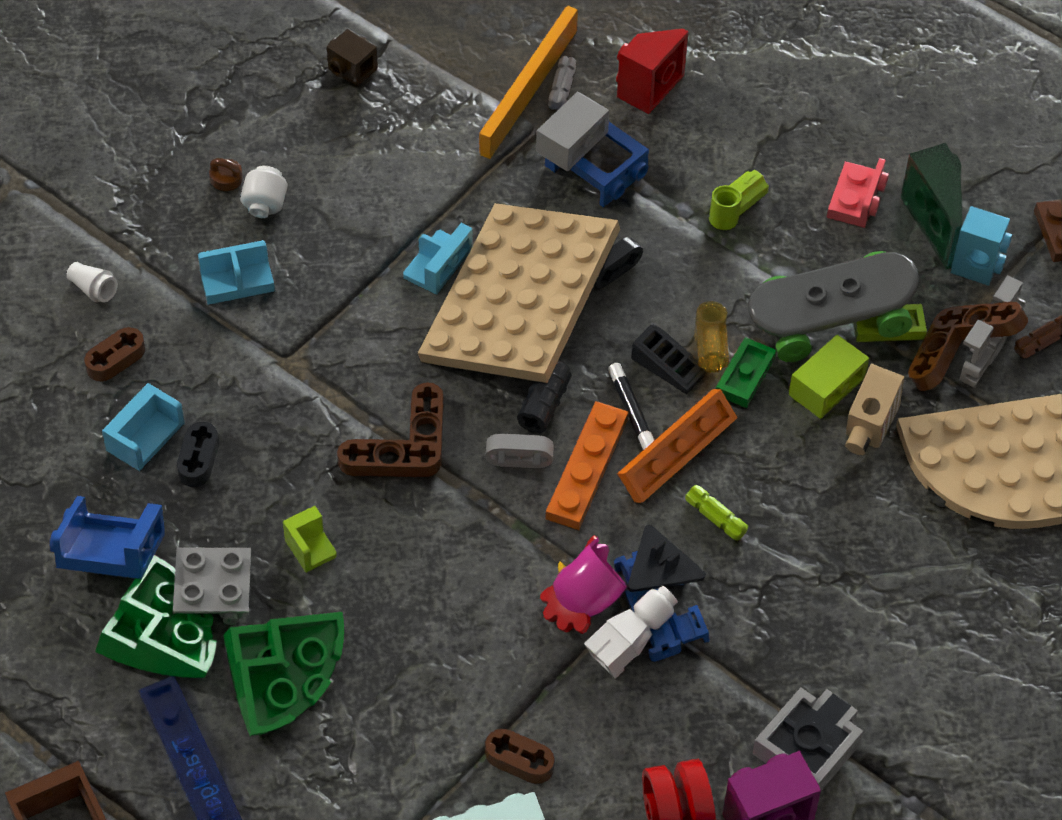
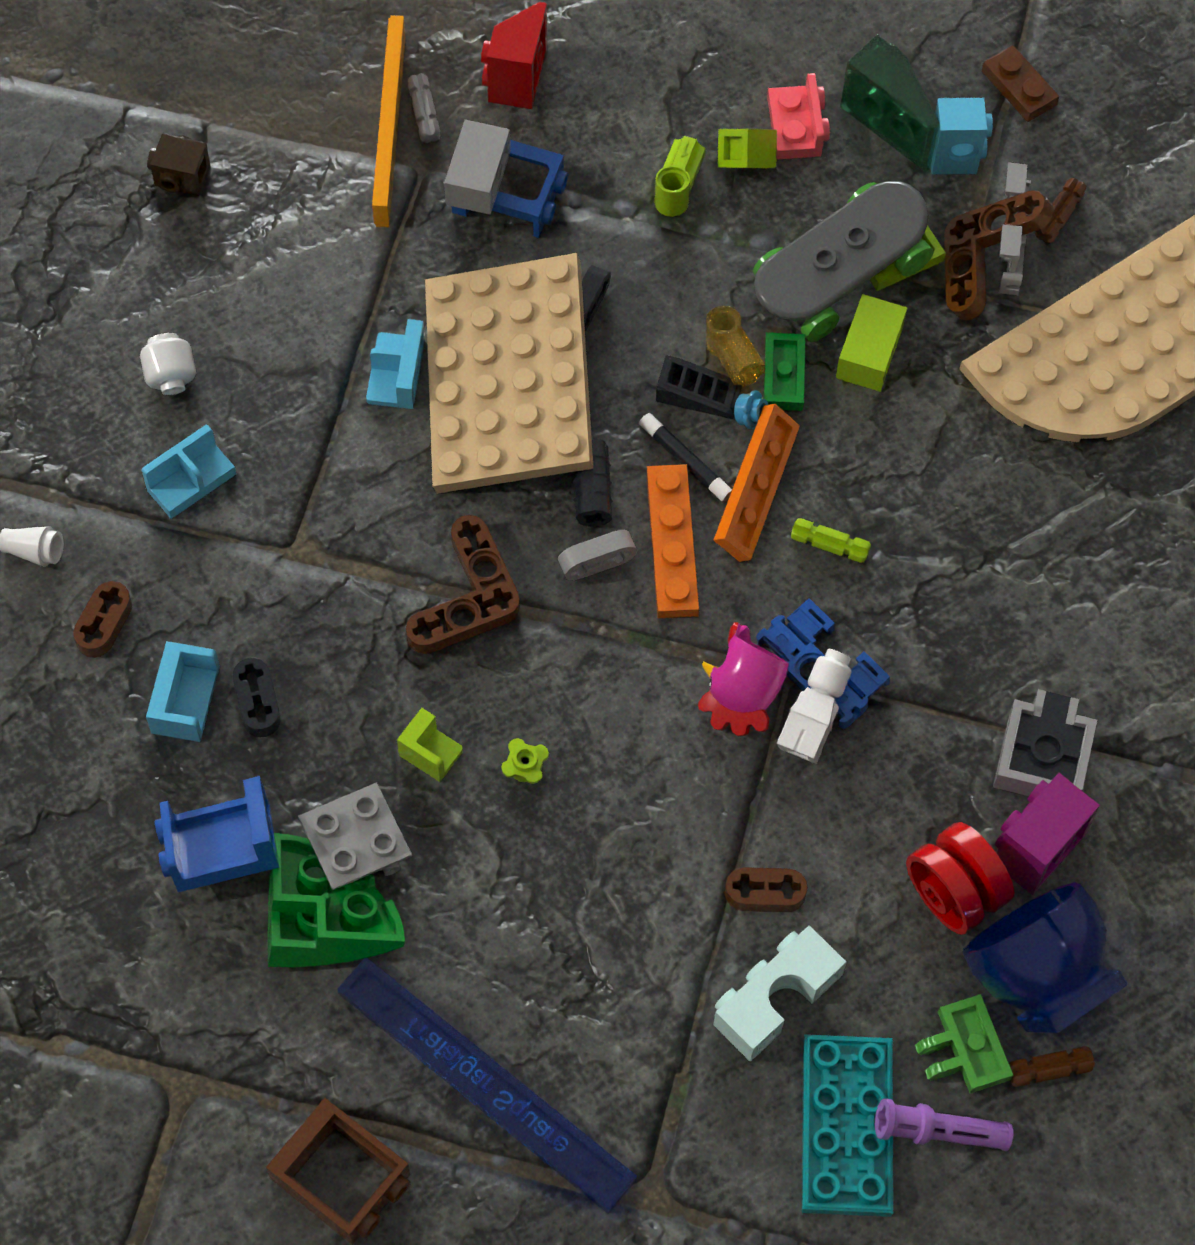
camera: 25 degrees left, 10 degrees up
(225, 174) = (111, 358): reddish brown tile -> none
(282, 666) = (476, 901): green brick -> none
(381, 590) = (527, 772): none -> lime plate
(661, 564) = (807, 622): black piece -> none
(699, 387) = (748, 409): none -> dark azure plate
(804, 197) = (747, 148): none -> lime panel
(873, 409) = (938, 364): tan torso -> none

